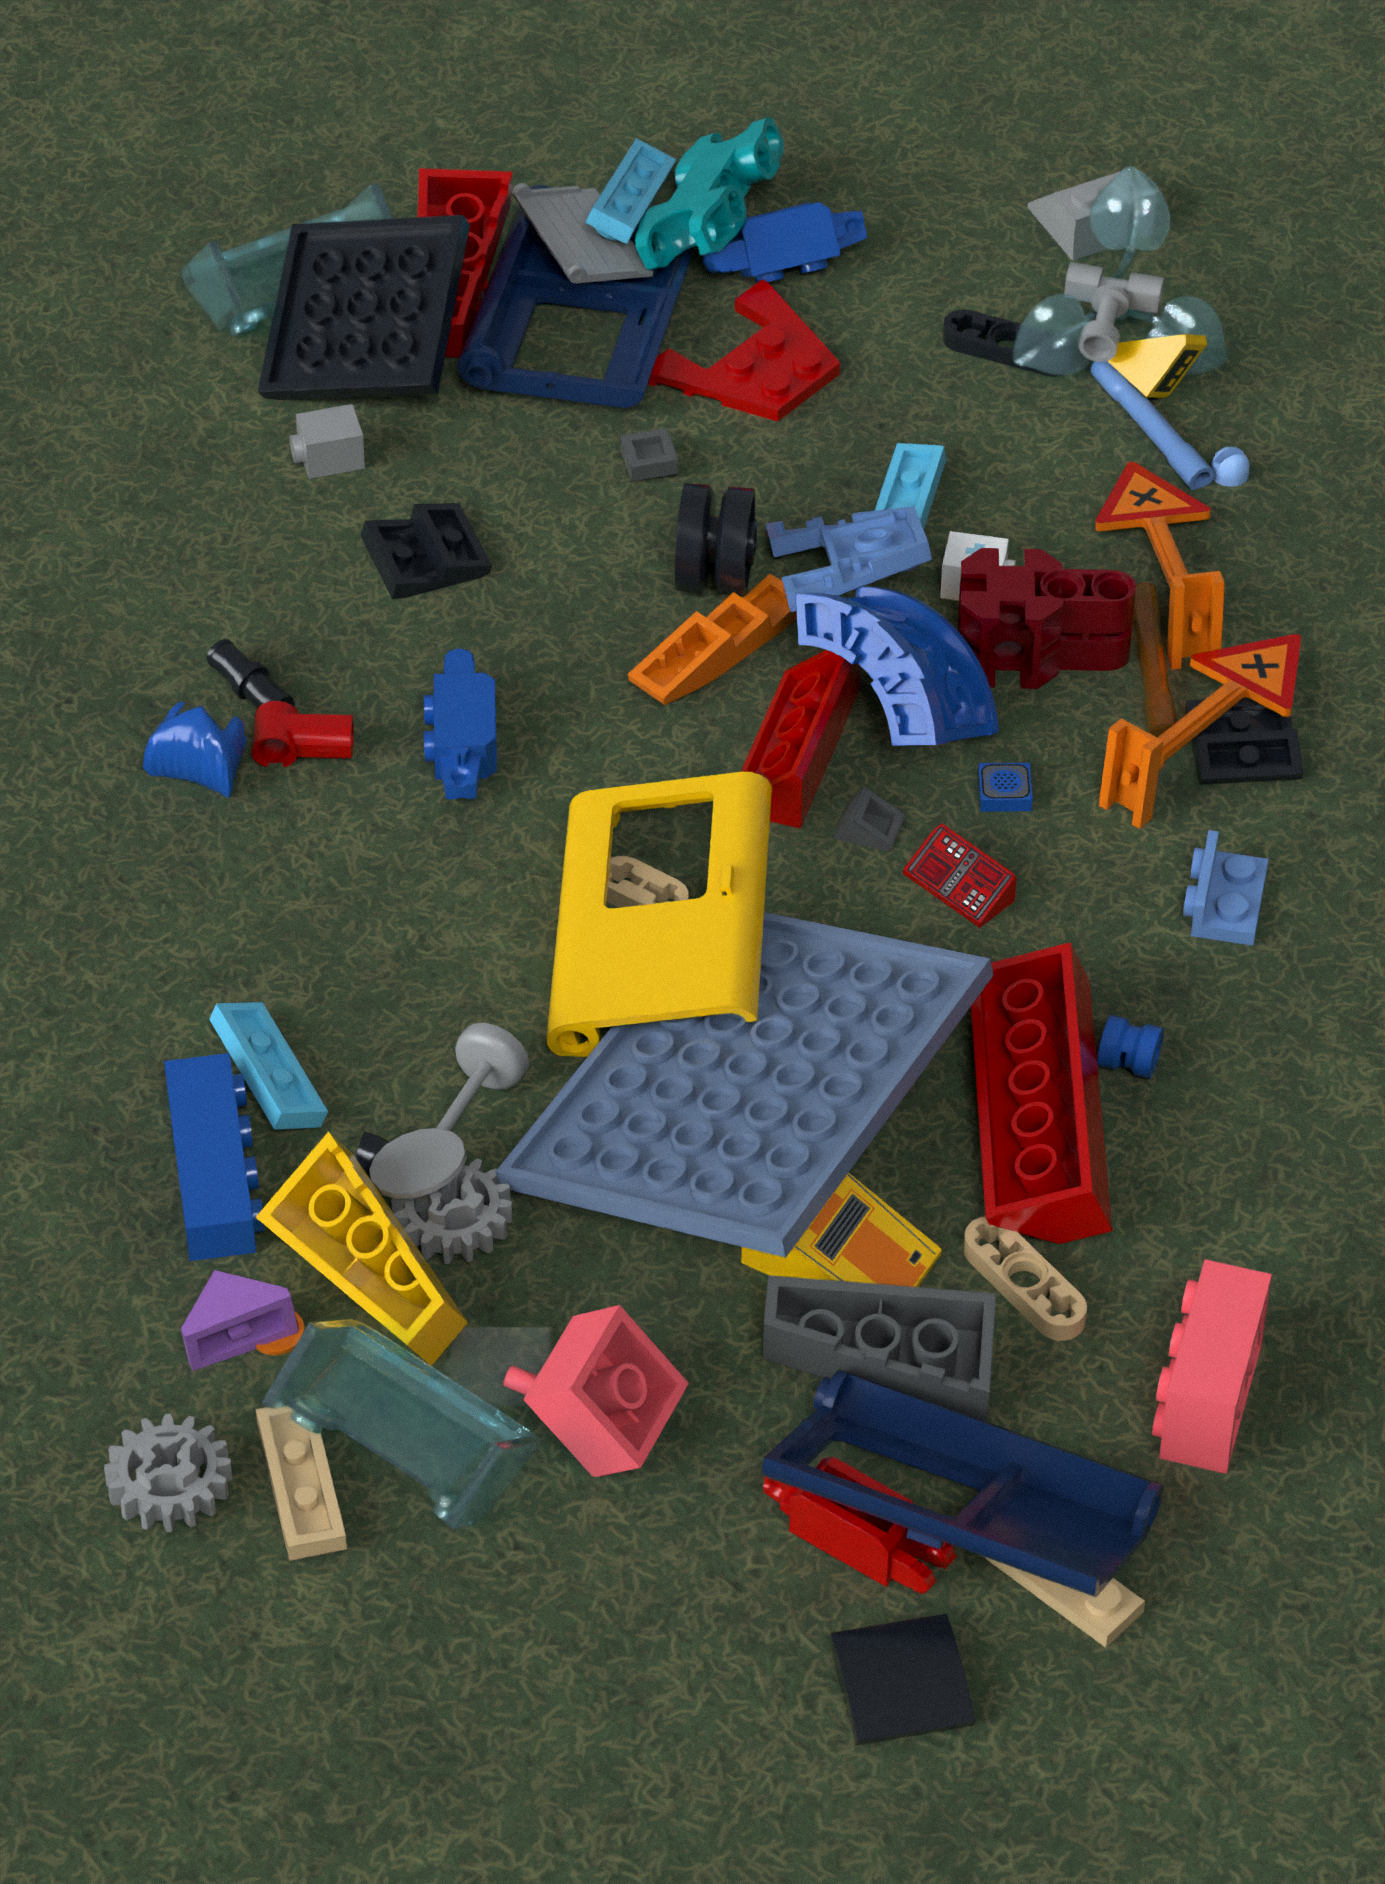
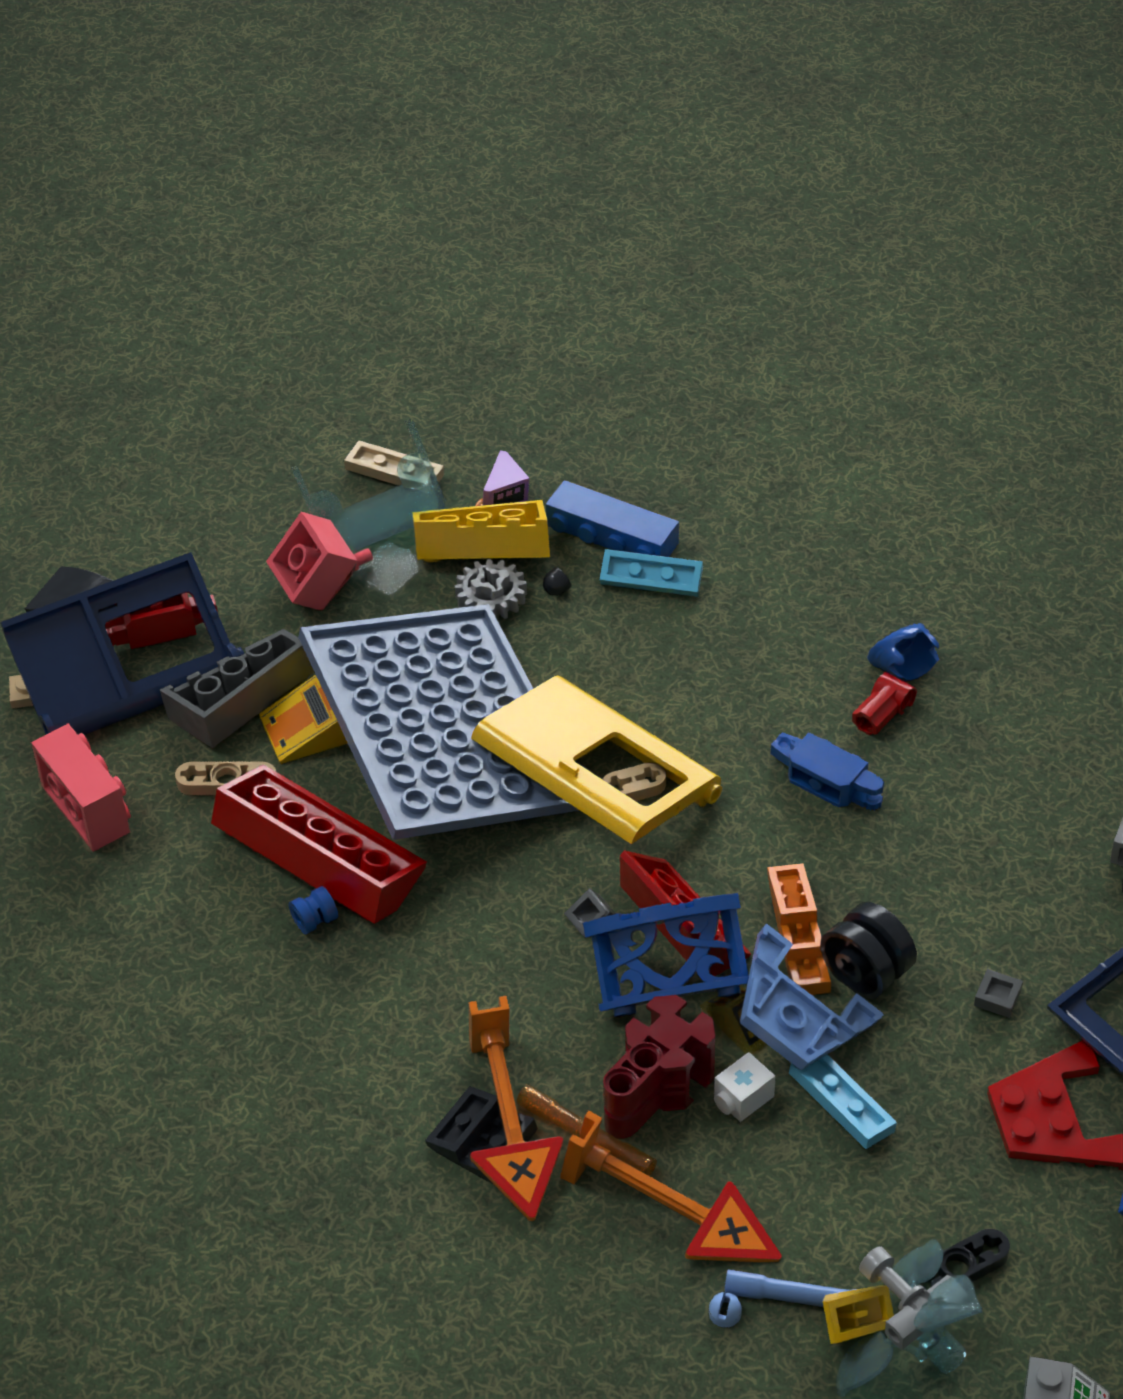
camera: 130 degrees right, 0 degrees up
(168, 1472) = (444, 426): light grey gear -> none
(248, 678) = (950, 707): black pin -> none
(426, 551) = (1003, 843): black slope -> none
(433, 1157) = (530, 580): light grey piece -> none
(962, 876) = (508, 926): slope -> none
(1005, 787) = (558, 992): blue tile -> none
(1227, 893) = (377, 1035): medium blue bracket -> none

